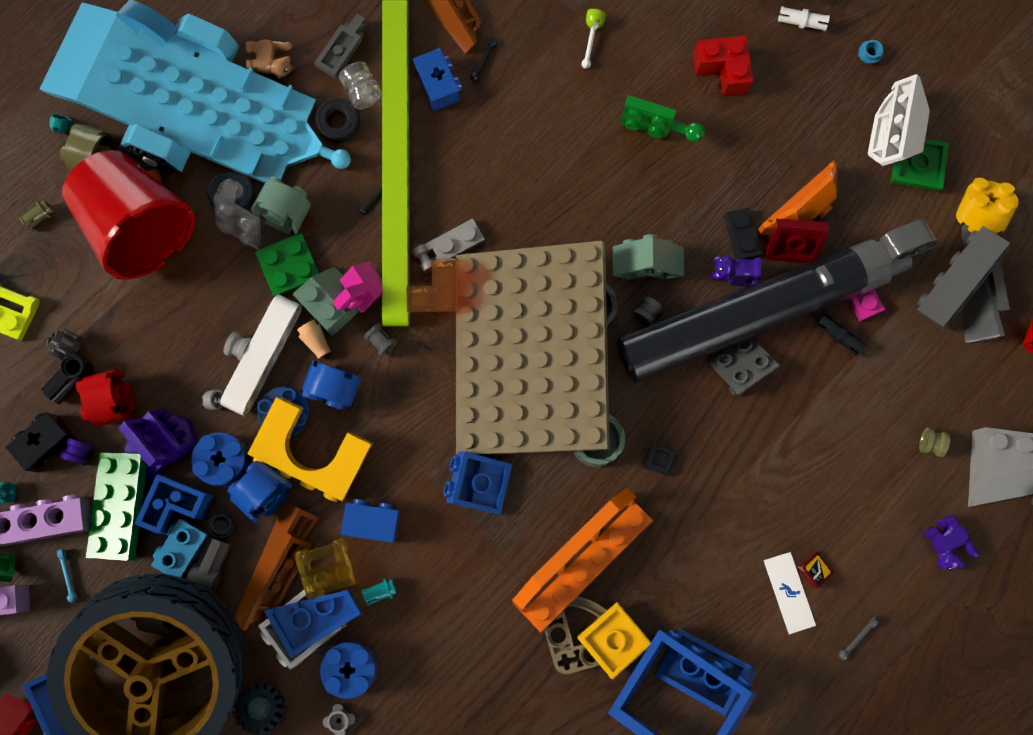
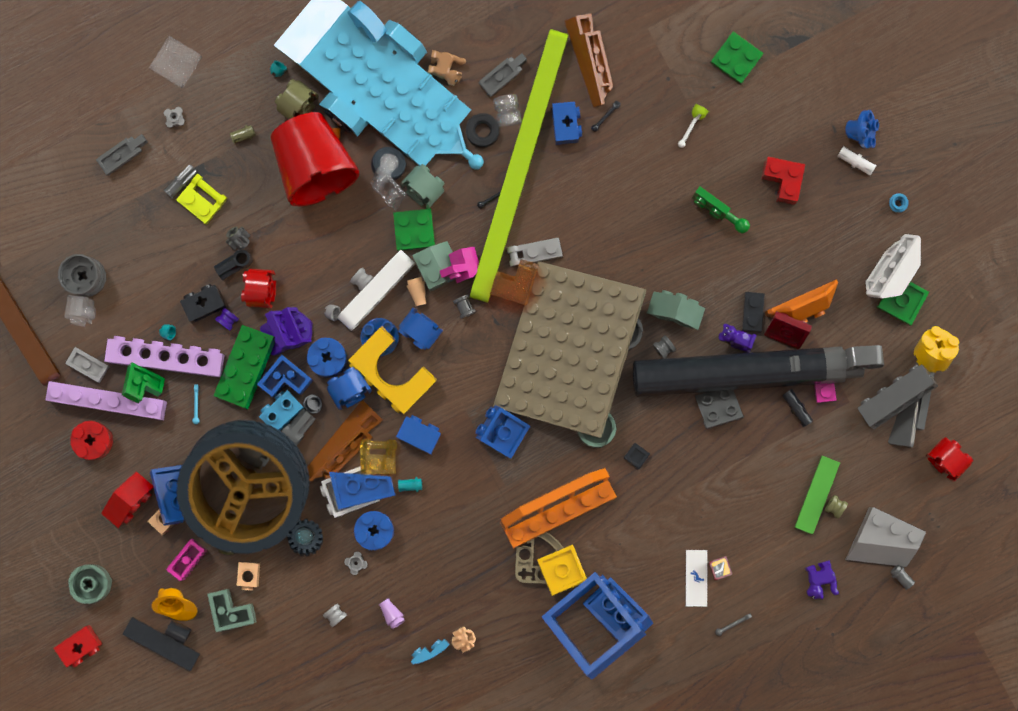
camera: 15 degrees right, 5 degrees up
(903, 436) = (817, 495): none -> bright green tile

